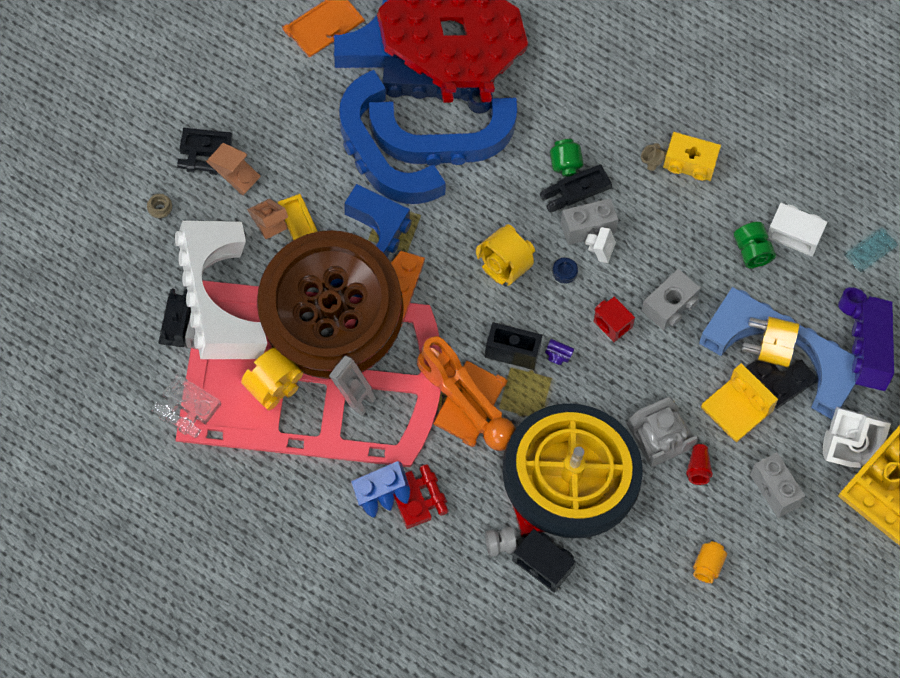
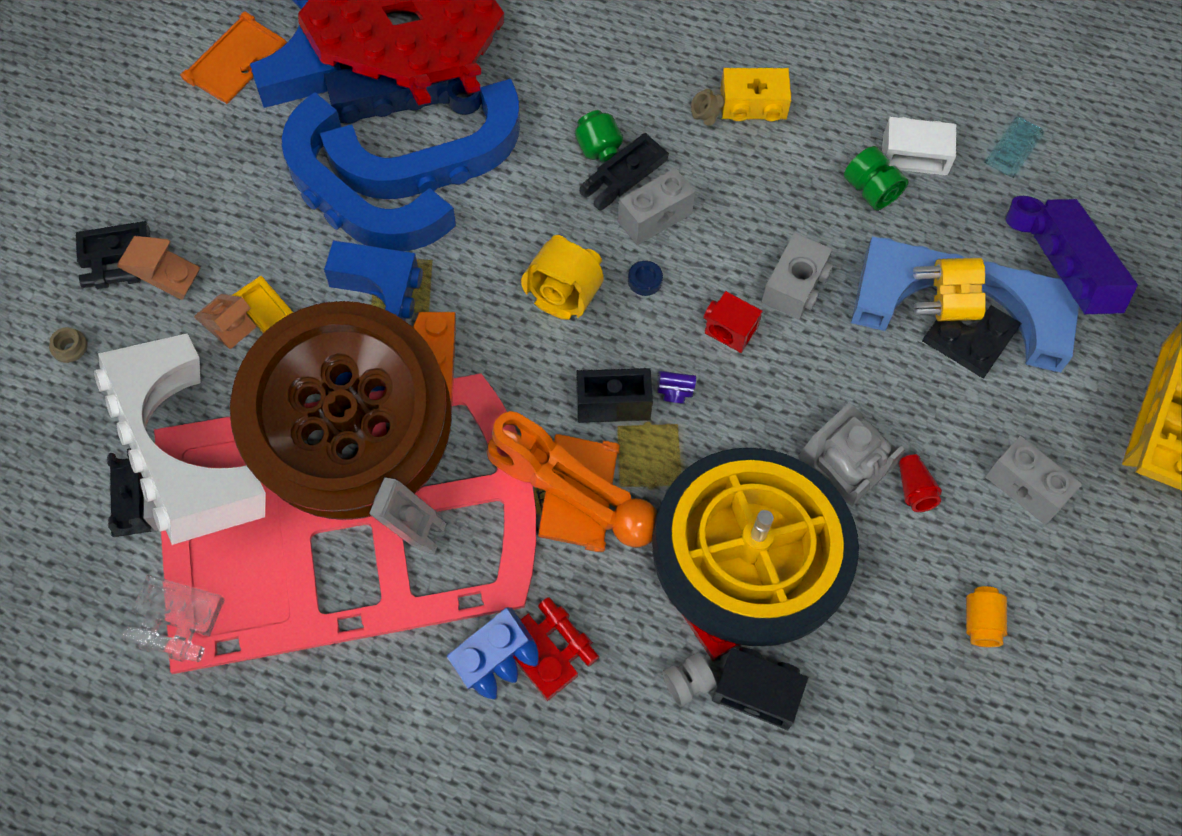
camera: 15 degrees left, 0 degrees up
(272, 378) = (287, 541): yellow brick -> none
(602, 244) = (681, 231): white tile -> none
(740, 403) = (939, 384): yellow bracket -> none
(854, 437) = (1105, 386): white brick -> none

